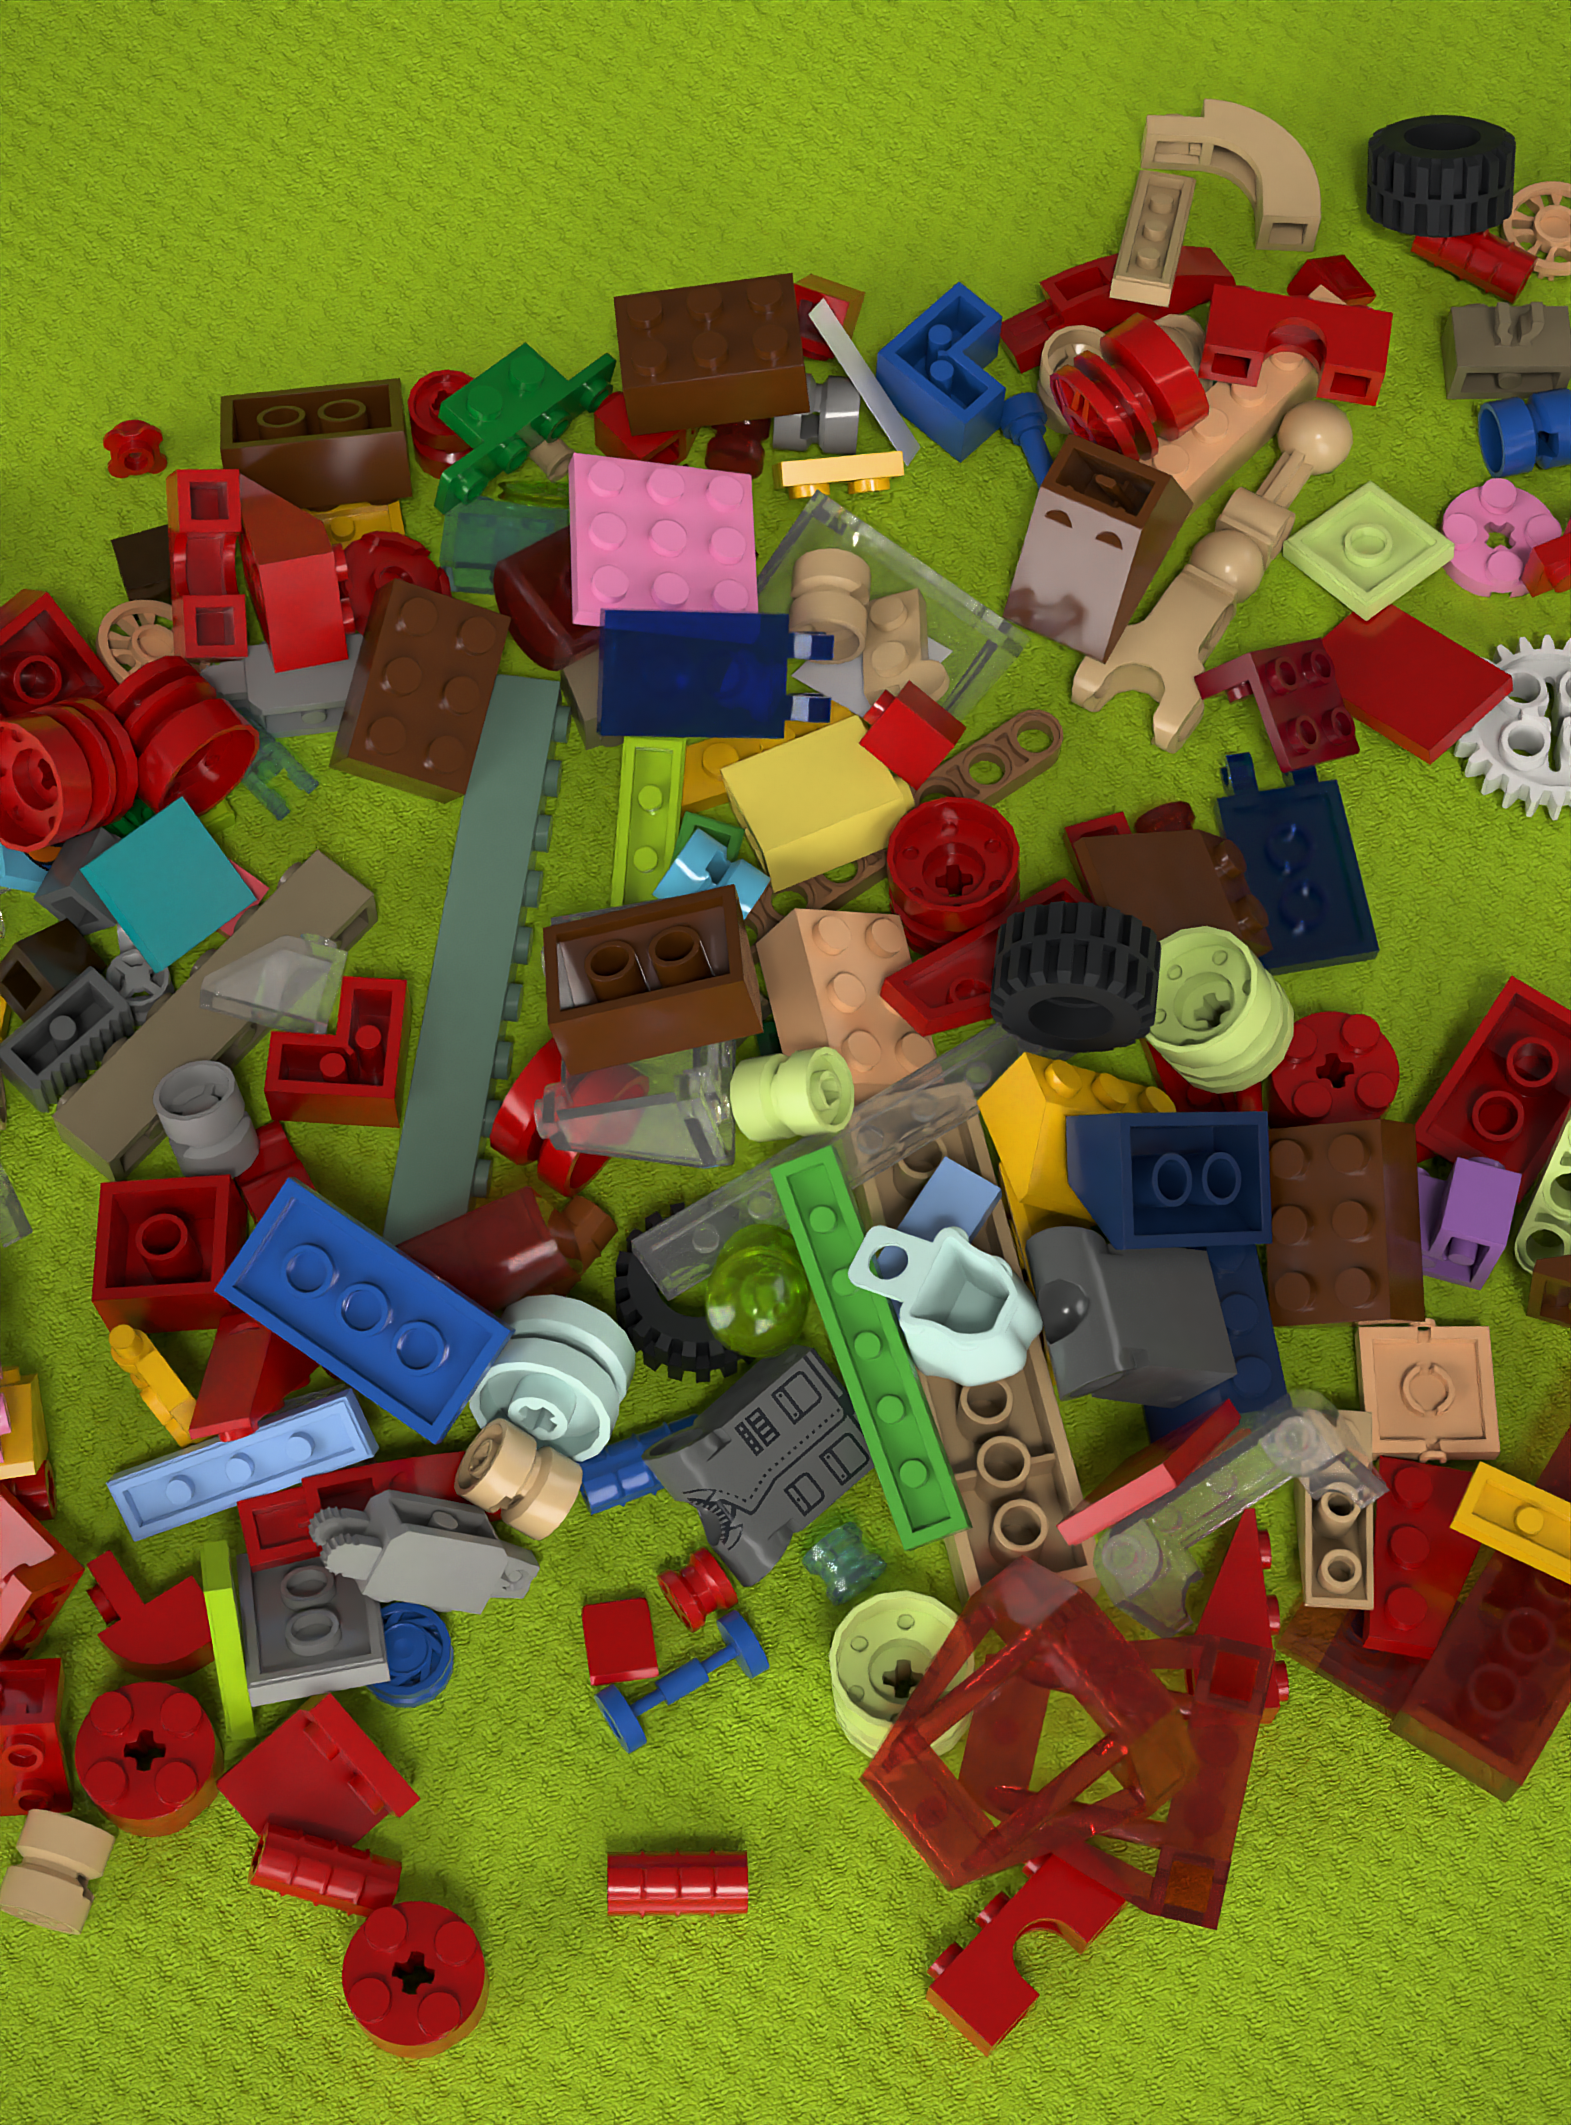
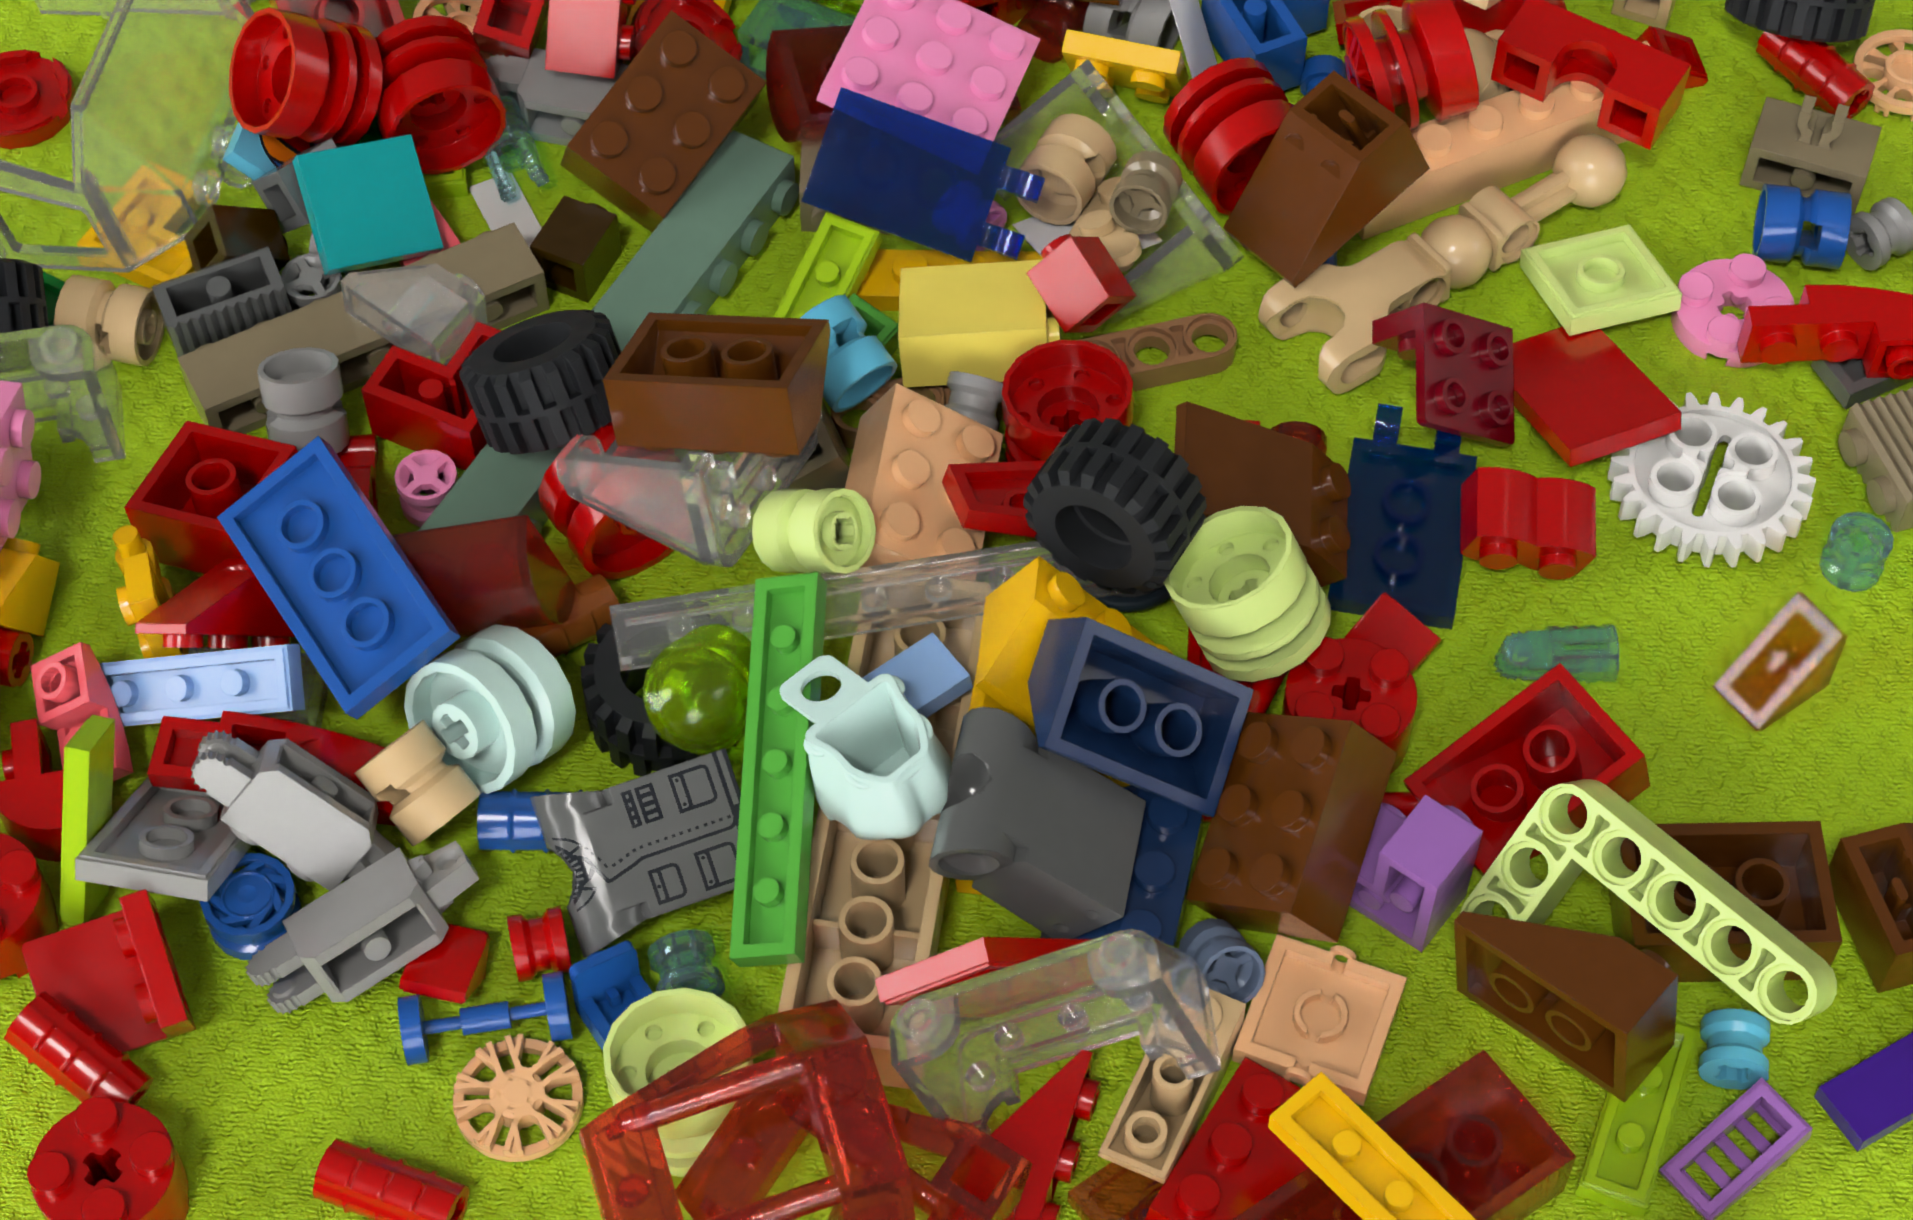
camera: 25 degrees right, 10 degrees down
(147, 1522) = (72, 689): none -> coral slope
(291, 838) = (501, 213): none -> white sticker
(361, 1145) = (426, 472): none -> bright pink wheel
(384, 848) = (577, 247): none -> dark brown brick
(461, 1026) = (542, 380): none -> black tyre
(533, 1640) = (363, 928): none -> light grey hinge
(743, 1745) = (518, 1098): none -> light nougat wheel
(795, 1620) = (606, 987): none -> blue bracket
(855, 888) = (975, 397): none -> light grey wheel
(930, 613) = (1145, 192): none -> dark tan wheel
(975, 513) = (1225, 126): none -> red wheel
(1318, 1365) = (1225, 959): none -> sand blue wheel
(1336, 988) = (1396, 628): none -> red slope
(1411, 833) = (1528, 522): none -> red brick
(1479, 958) = (1586, 652): none -> clear light blue hinge

